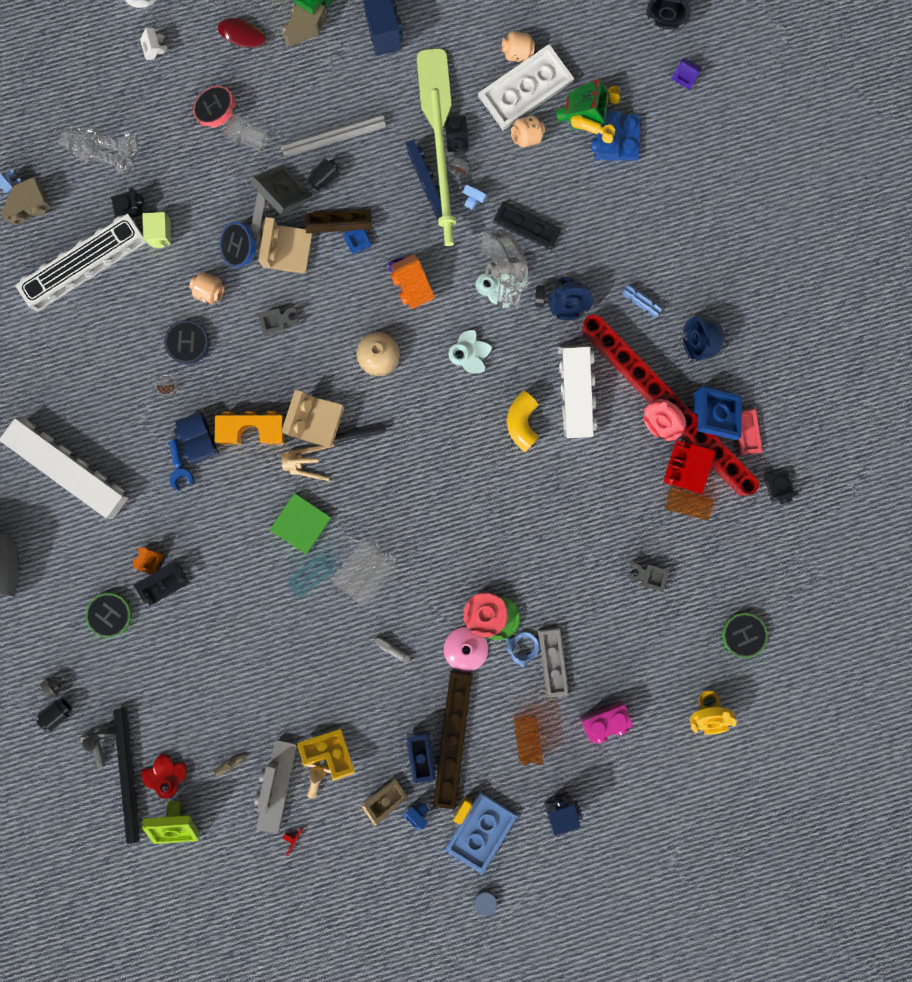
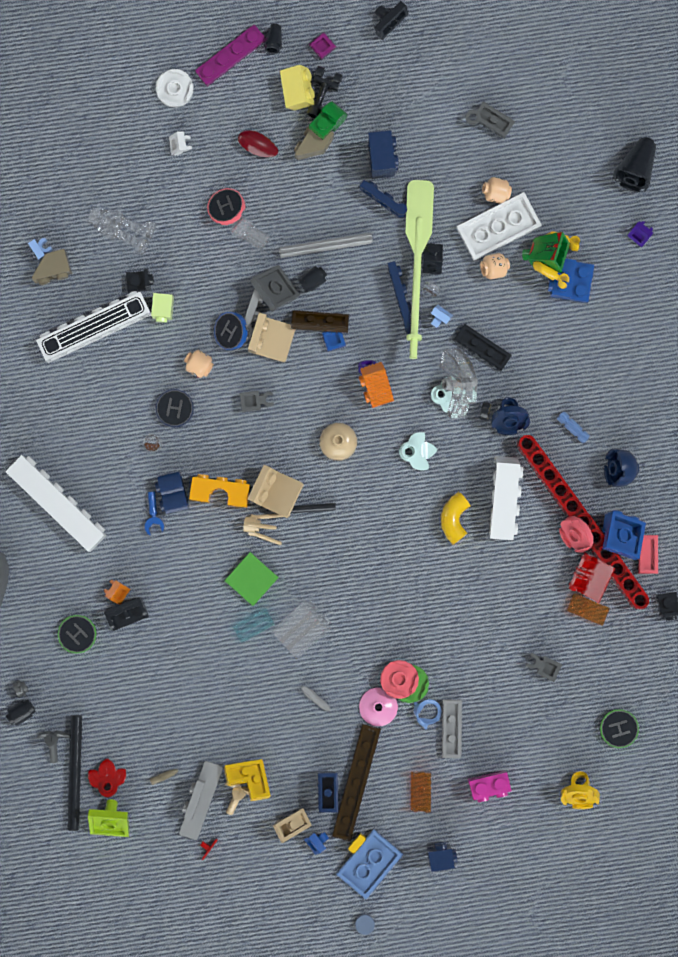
camera: 10 degrees right, 0 degrees up
(391, 74) = (383, 199): none -> dark blue plate

